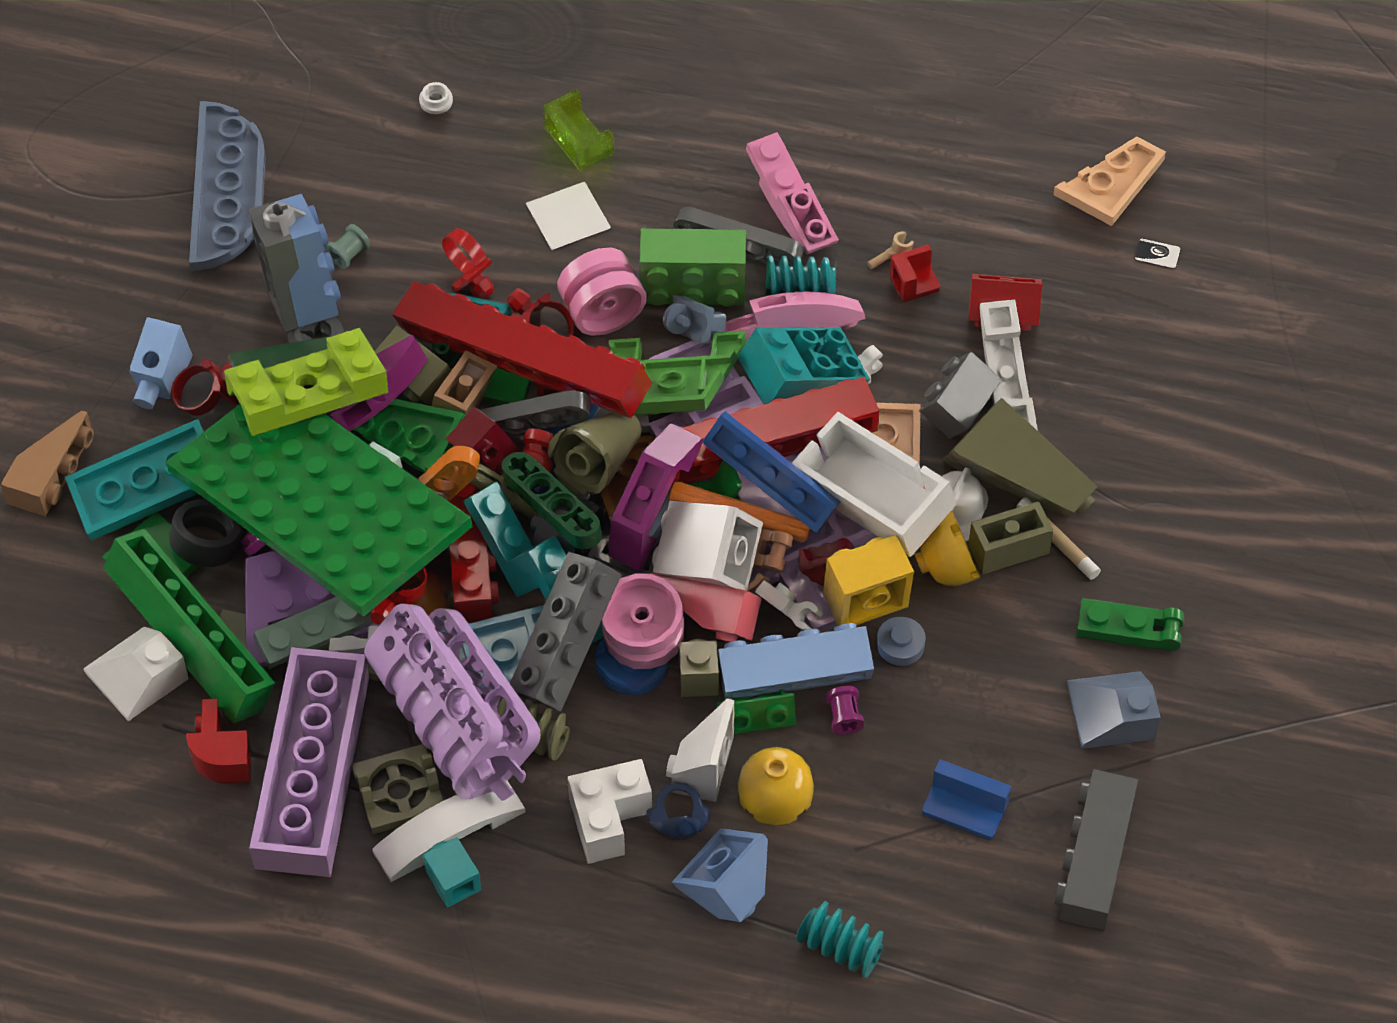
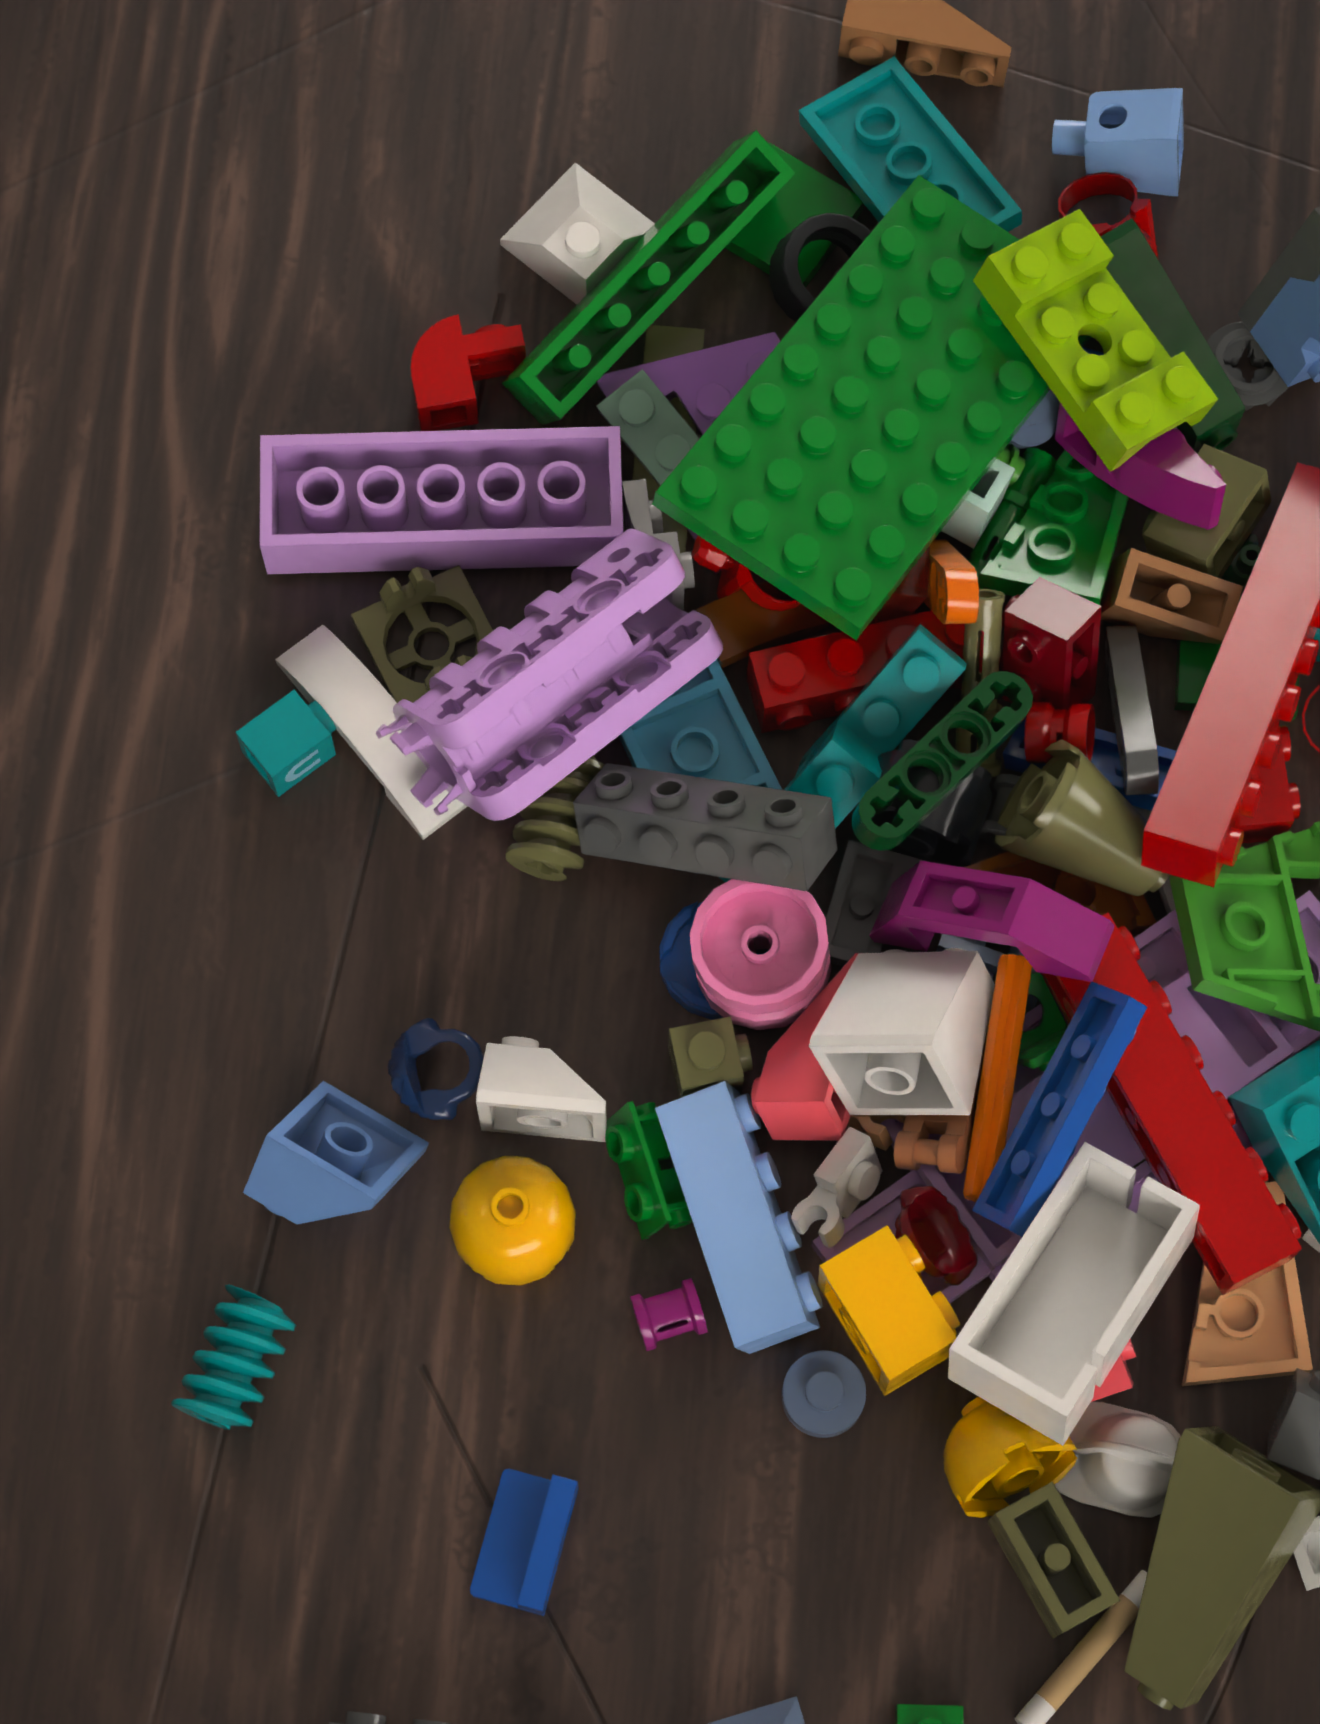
camera: 80 degrees right, 15 degrees up
(603, 800) = (431, 941): white brick -> none

